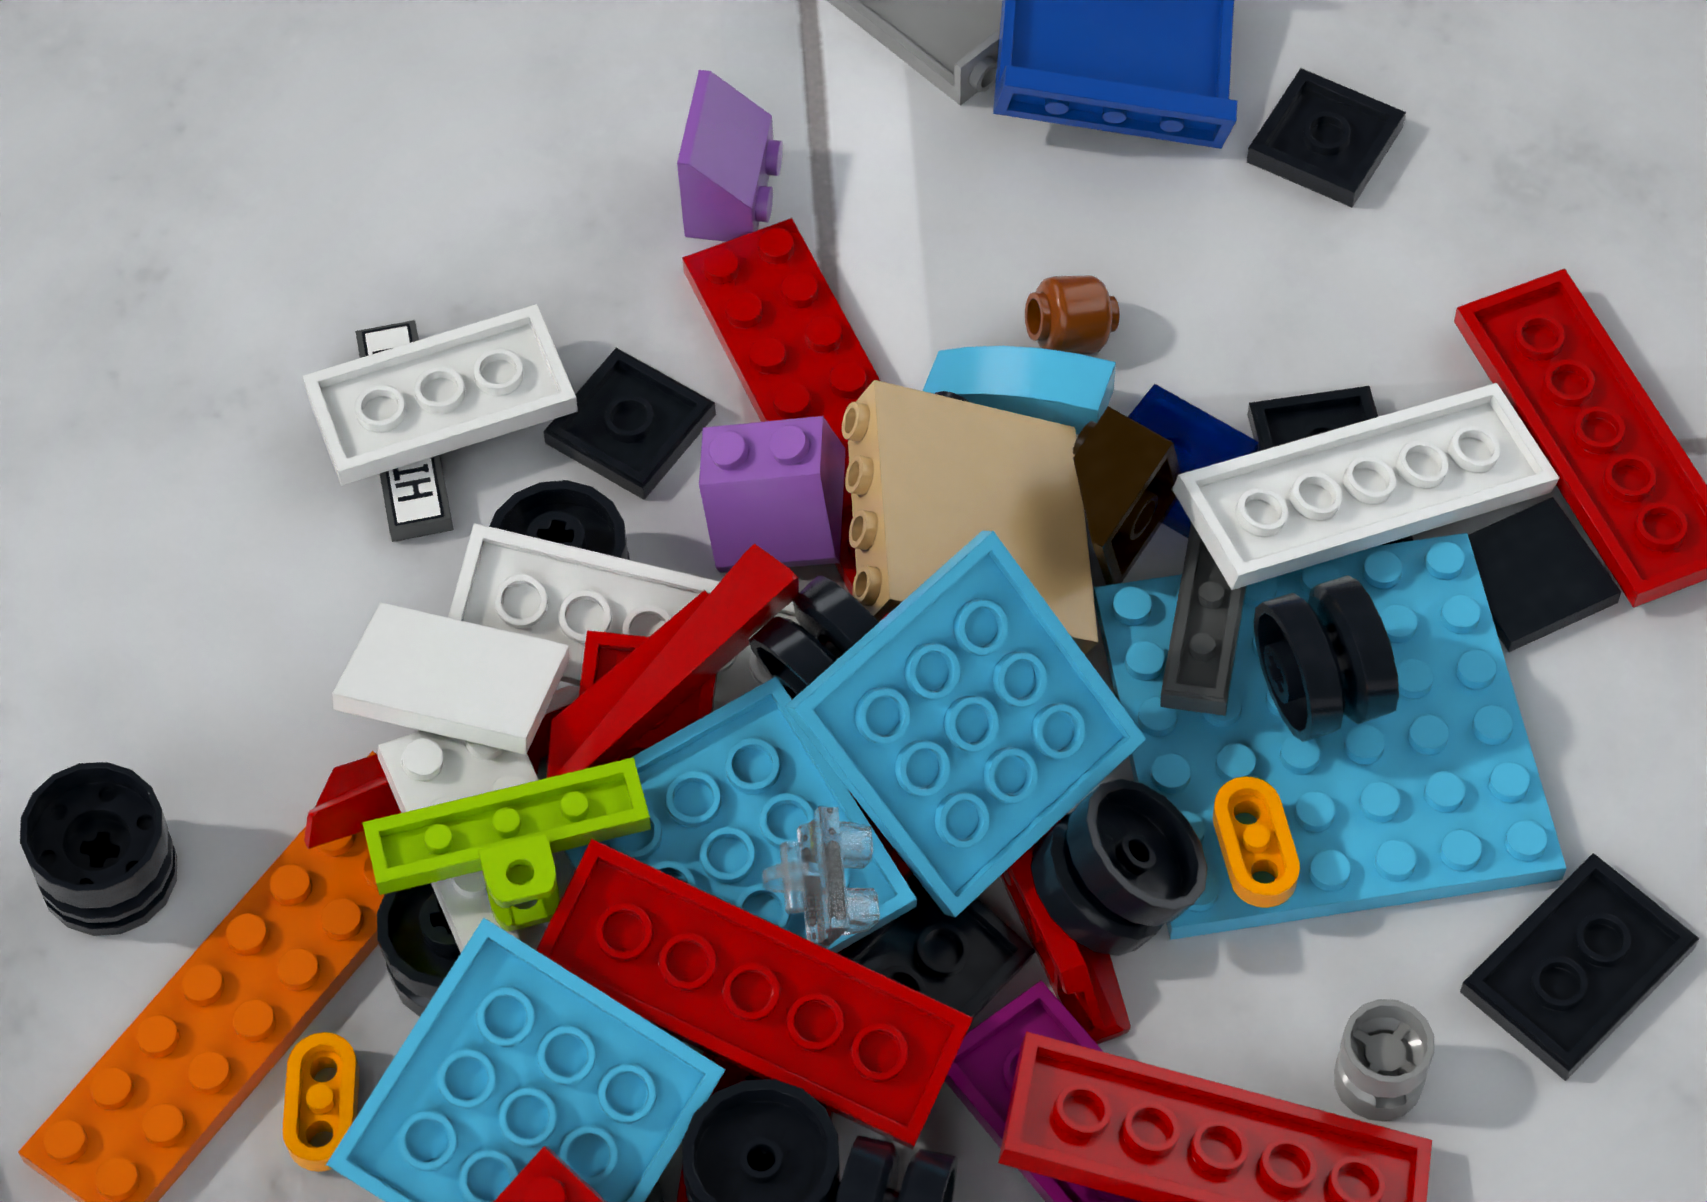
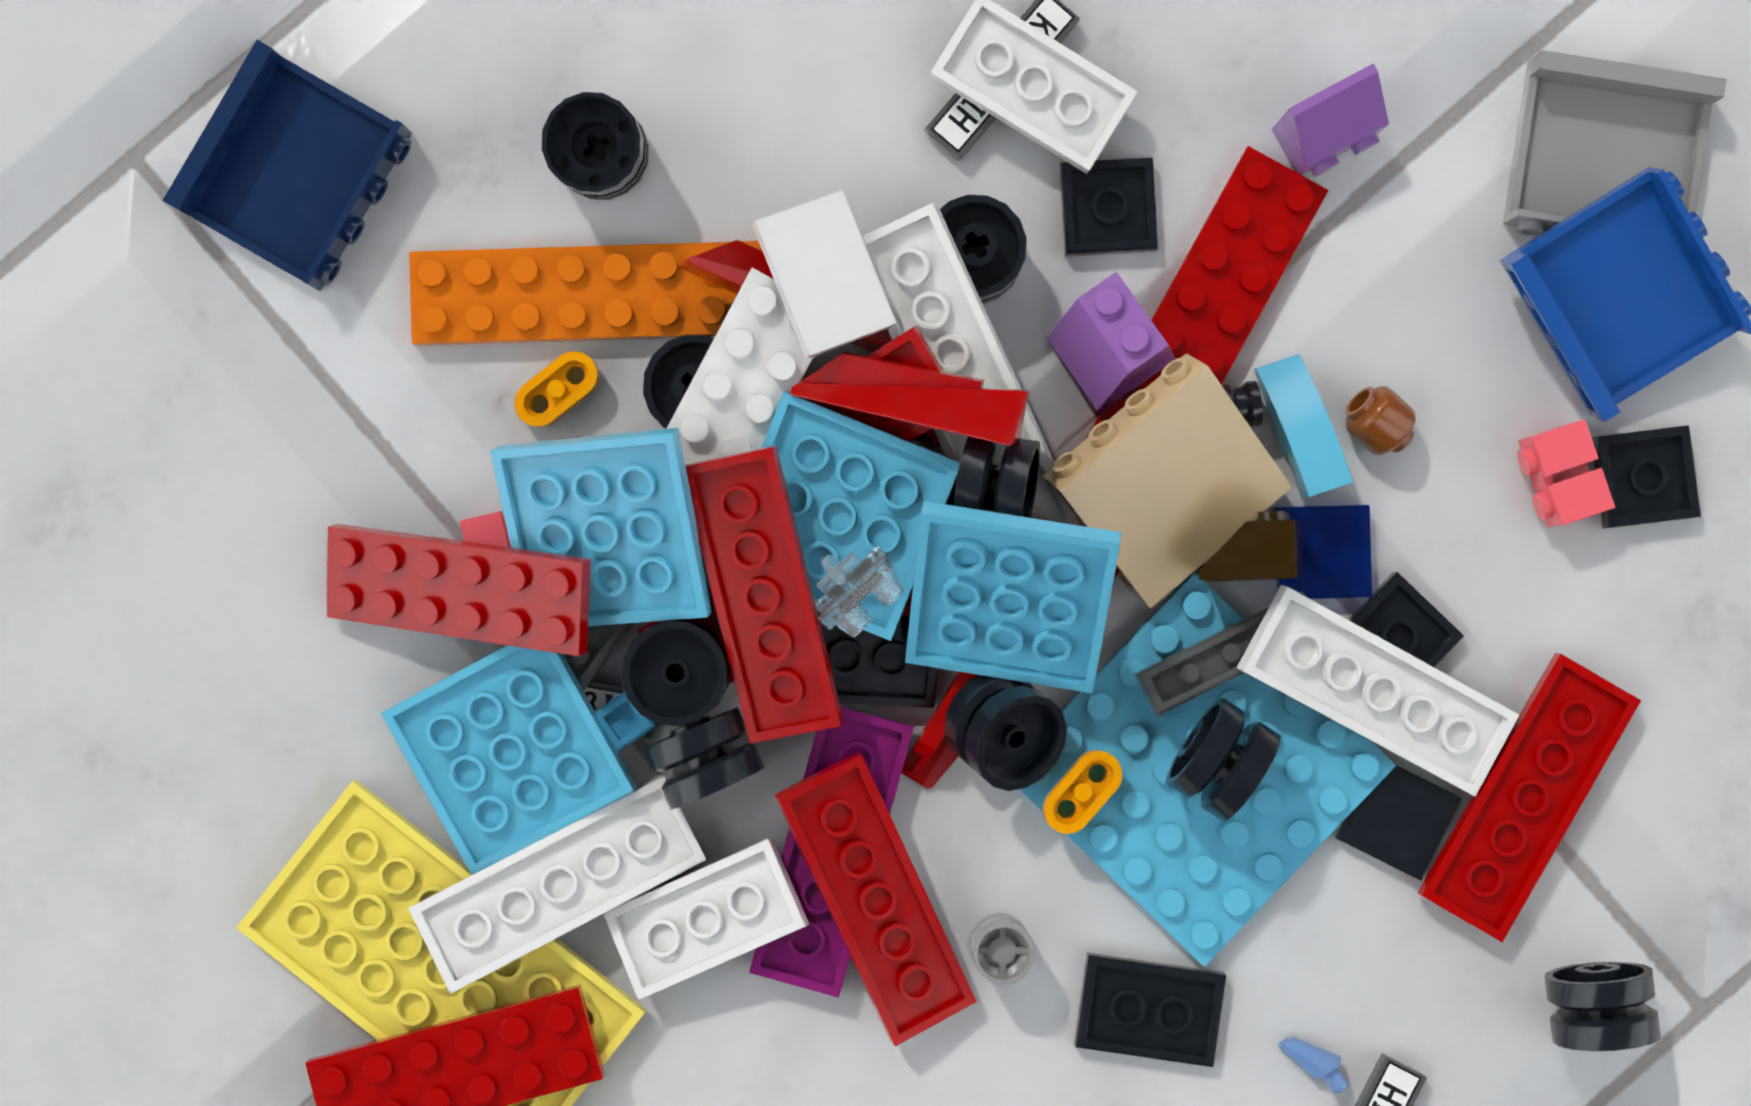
camera: 45 degrees right, 30 degrees up
(509, 837) = (745, 394): lime plate -> none
(1266, 208) = (1561, 475): none -> coral piece

